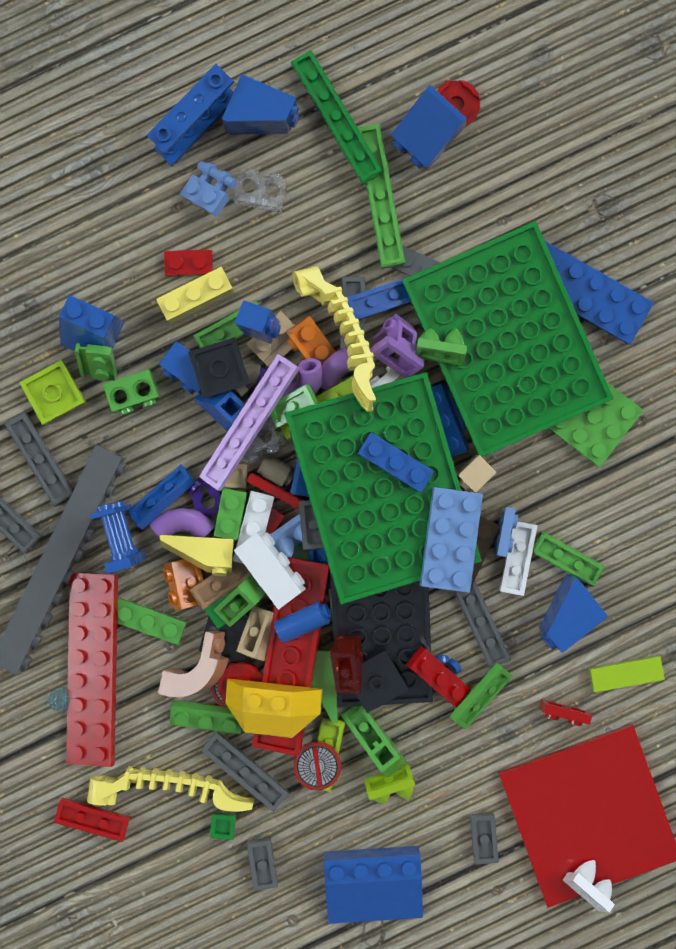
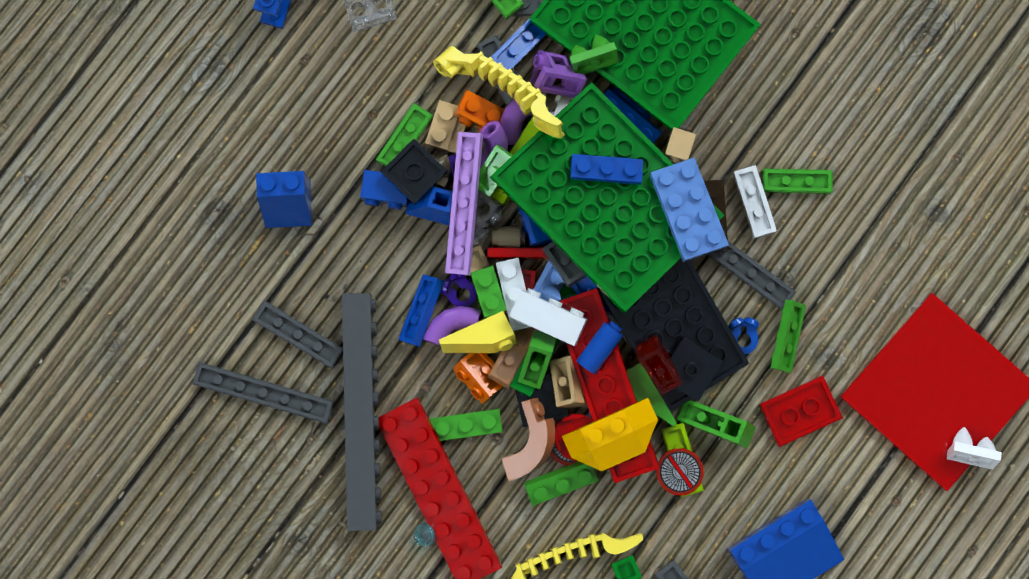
camera: 30 degrees left, 5 degrees down
(52, 392) = (280, 270): lime plate -> none
(96, 361) = (305, 223): bright green plate -> none
(118, 537) = (418, 372): blue fence -> none
(131, 386) = (343, 229): bright green brick -> none
(188, 262) = (339, 101): red plate -> none
(195, 295) = (360, 123): light yellow brick -> none
(205, 195) = (325, 36): medium blue plate -> none
(245, 771) = (619, 511): dark grey plate -> none
(258, 322) = (427, 116): blue brick -> none
(381, 786) = (745, 459): lime tile -> none
(438, 676) = (742, 337): red plate -> none
(456, 767) = (800, 411): none -> red tile
(484, 838) = (859, 459): dark grey plate -> none
(507, 522) = (735, 192): medium blue plate -> none
(570, 615) = (825, 223): blue slope -> none
(574, 715) = (858, 315): red plate -> none
(600, 428) = (762, 58): bright green plate -> none
(626, 673) = (901, 252): lime tile -> none

